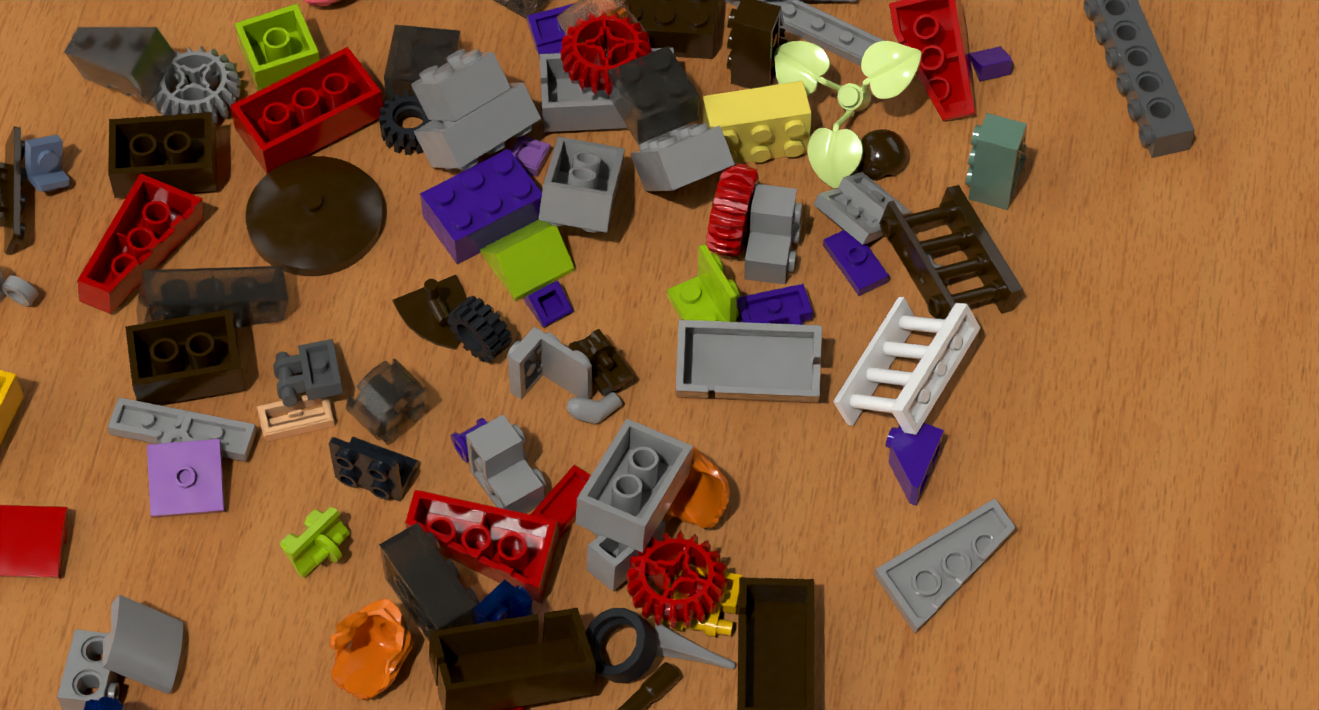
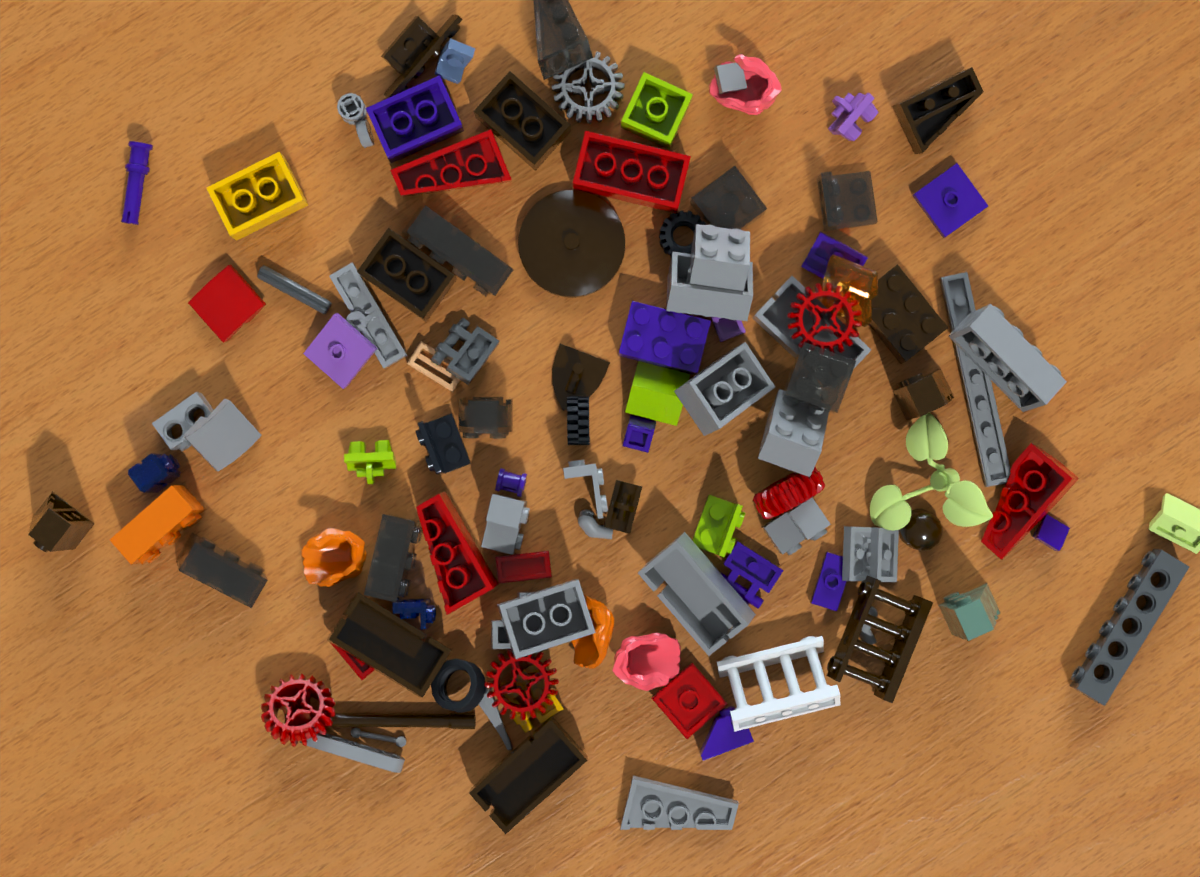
camera: 45 degrees right, 30 degrees up
(57, 235) = (415, 119): none -> dark purple brick
(83, 474) = (294, 289): none -> dark grey axle
(762, 121) = (865, 447): light yellow brick -> none
(769, 460) = (647, 660): none -> coral hair
(848, 464) = (689, 700): none -> red plate

